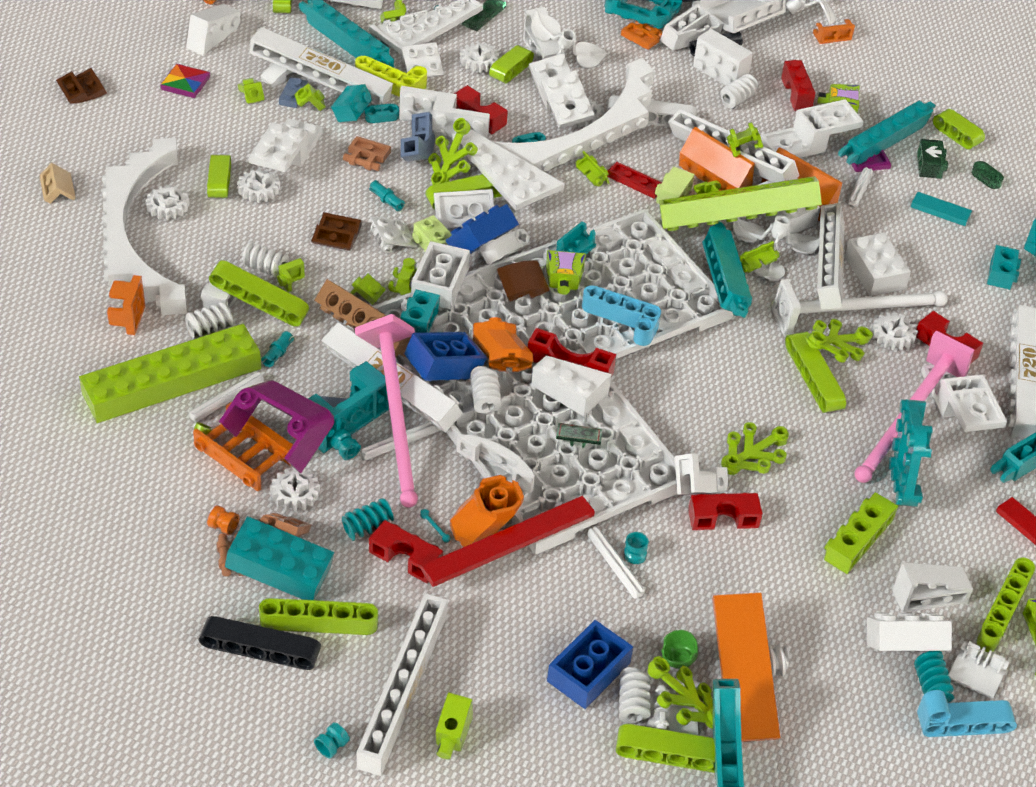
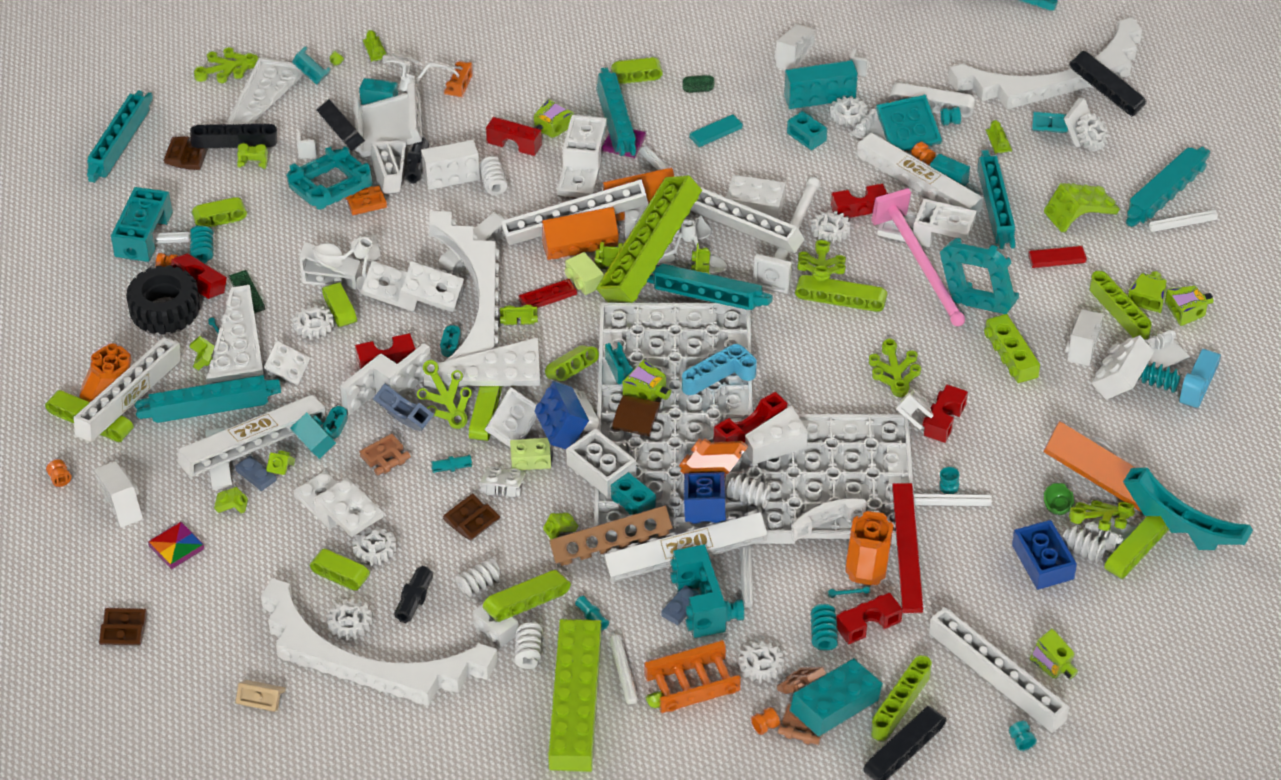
camera: 55 degrees left, 0 degrees up
(133, 304) = (480, 689): orange panel -> none
(222, 229) = (413, 594): none -> black piece
(290, 273) = (508, 573): lime bracket -> none
(308, 423) = (675, 626): magenta windscreen -> none
(382, 335) = (812, 594): bright pink piece -> none
(404, 277) = (567, 493): lime piece -> none
(414, 78) = (312, 383): neon yellow beam -> none
(552, 219) = (564, 366): none -> lime beam
(578, 433) = (831, 455): clear green piece -> none
(743, 137) = (589, 194): lime piece -> none
(931, 158) = (659, 105): clear green brick -> none

